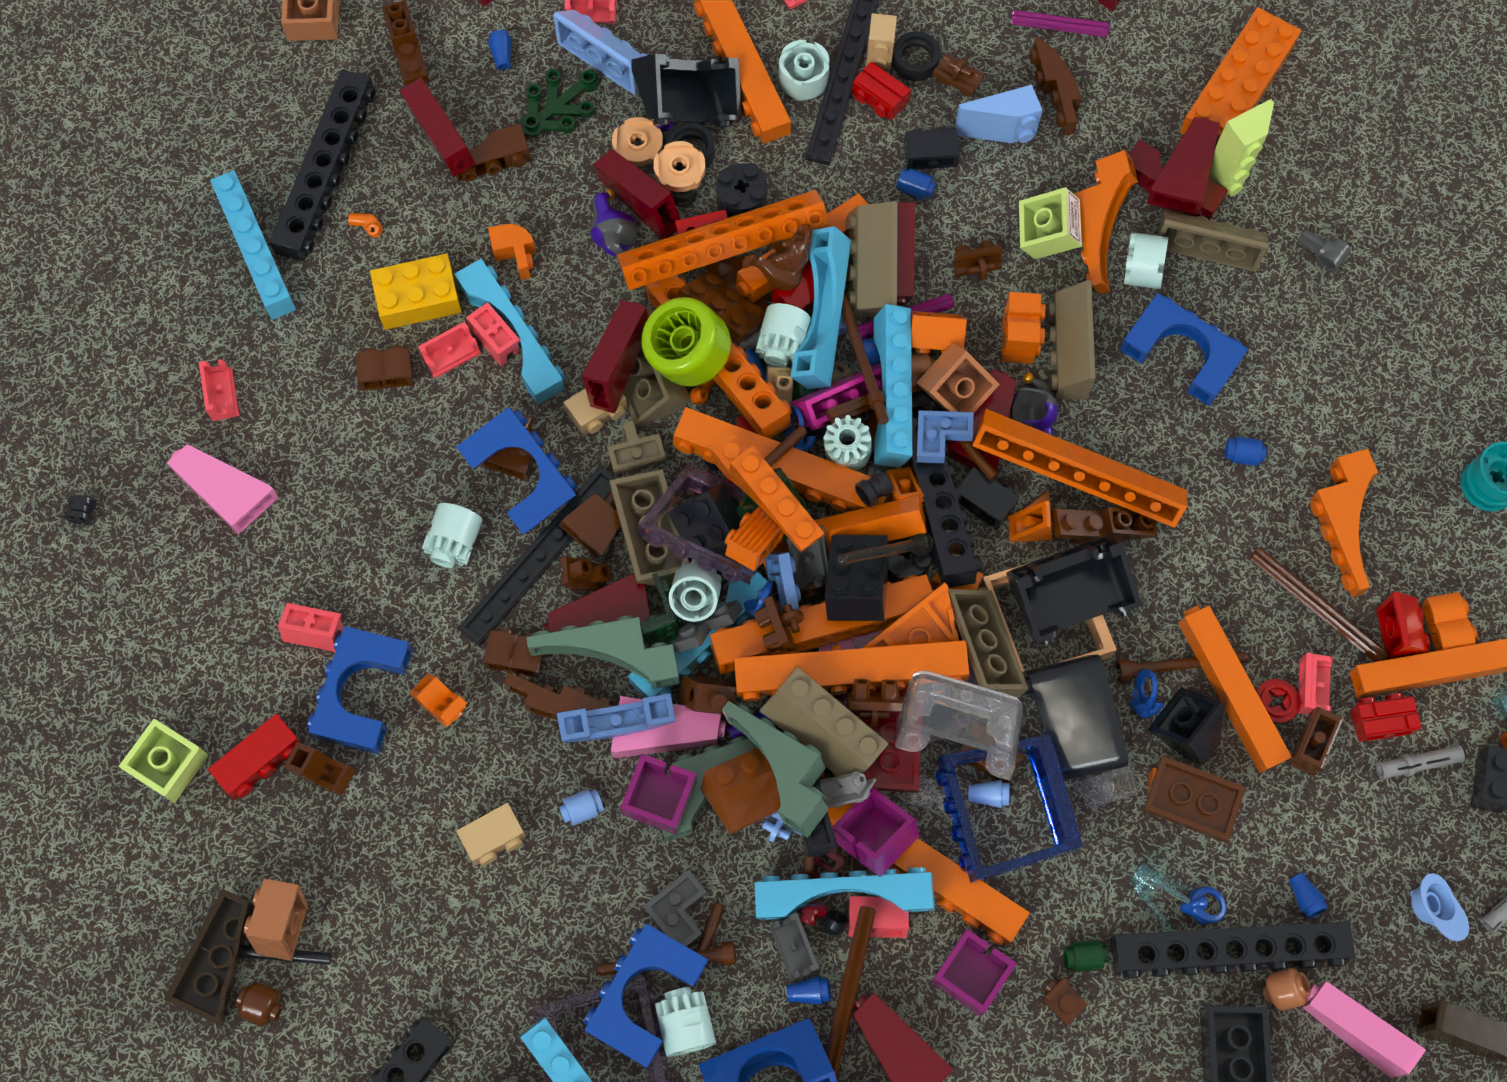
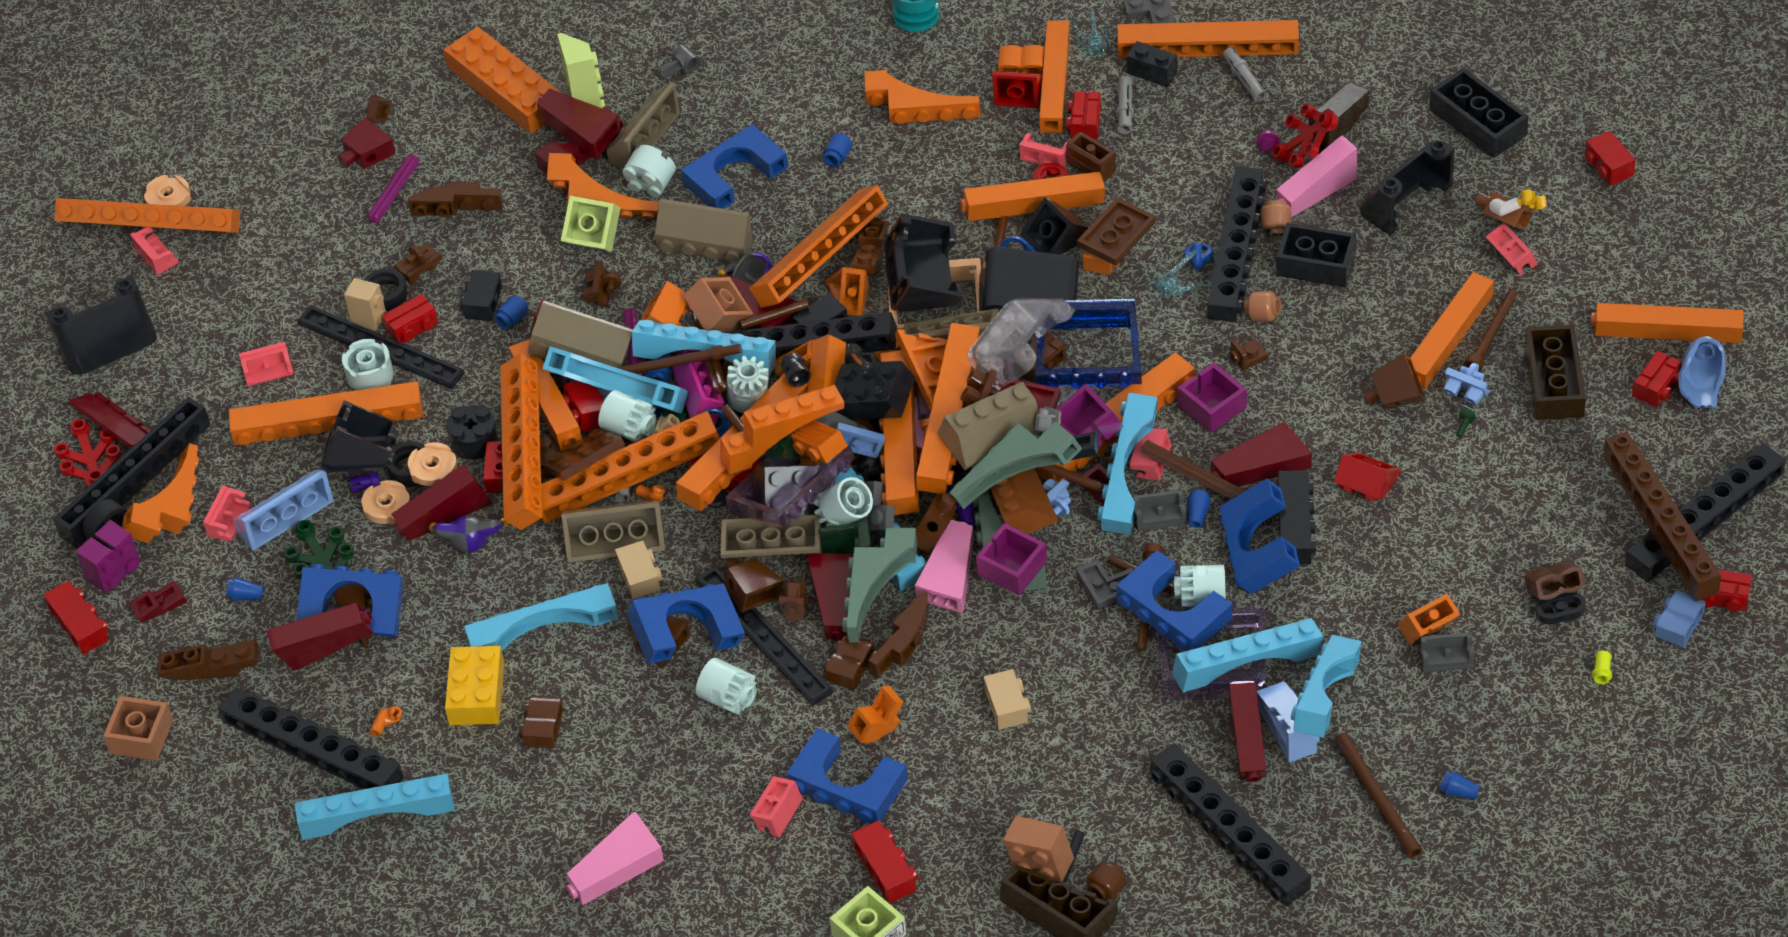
camera: 70 degrees left, 20 degrees down
(219, 390) = (516, 855): coral hinge -> none
(319, 769) = (914, 812): reddish brown brick -> none
(449, 350) = (543, 670): coral hinge -> none
(493, 333) = (540, 633): coral hinge -> none
(506, 167) = (385, 590): none -> blue arch
(513, 242) = (455, 603): orange brick -> none
(581, 807) = (1000, 634): light blue brick -> none
(615, 357) = (609, 525): dark red slope -> none
(616, 720) = (937, 580): medium blue slope -> none
(635, 450) = (690, 550): dark tan hinge -> none
(686, 341) = (611, 450): lime wheel -> none
(755, 604) = (861, 473): blue piece -> none
(773, 614) = (895, 442): reddish brown hips -> none
(786, 264) = (560, 390): reddish brown piece -> none
(813, 911) = (1135, 488): dark red arm -> none
(835, 922) = (1147, 483): black hinge -> none
(938, 426) = (757, 323): medium blue plate -> none
(990, 793) = (1073, 358): light blue cone -> none
(1001, 117) = (477, 233): light blue slope -> none
(1022, 328) = (678, 260): orange brick -> none
(1085, 955) = (1217, 331): dark green brick -> none
(1109, 787) = (1090, 281): clear slope -> none
(1139, 1003) = (1263, 306): none -> nougat head
(1308, 897) = (1209, 192): blue cone -> none
(1318, 605) = (980, 136): reddish brown axle -> none
(1413, 952) = (1267, 140): none -> magenta plate
(1428, 1025) = (1325, 122): none -> red plant
(1437, 906) = (1239, 119): light blue piece -> none

